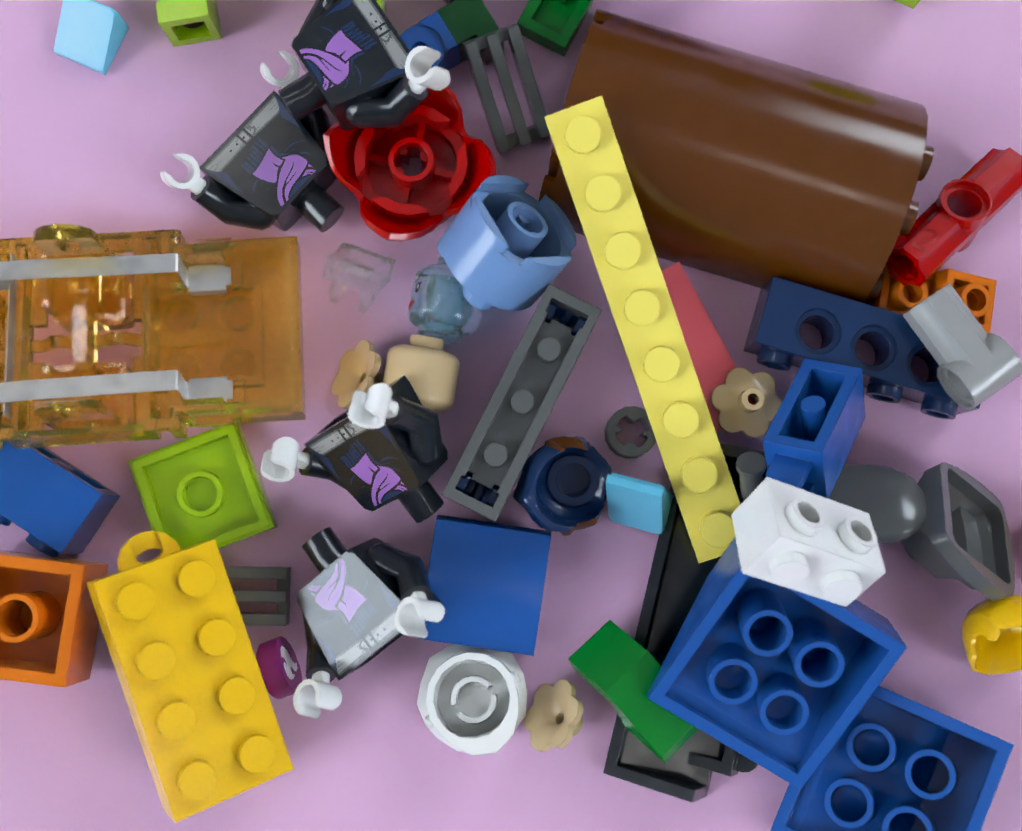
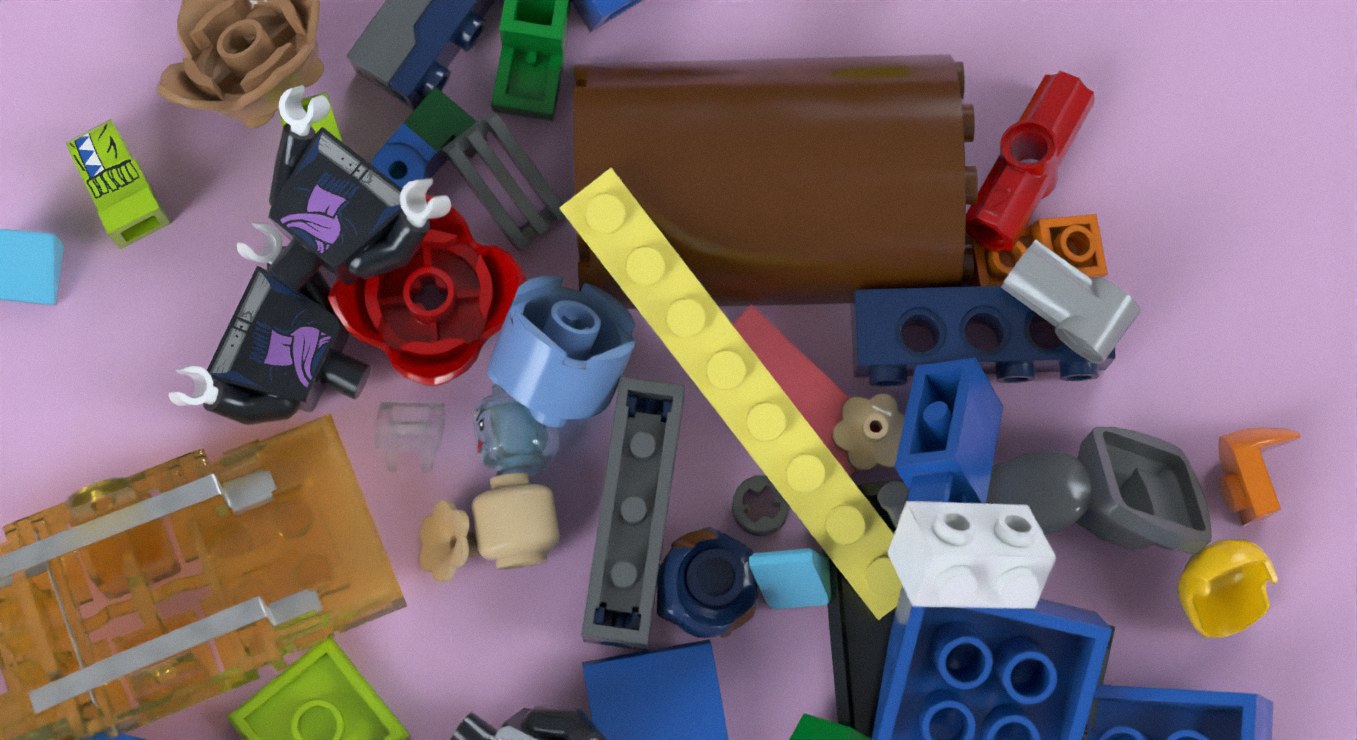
camera: 15 degrees left, 5 degrees down
(373, 450) = (491, 616): torso -> none

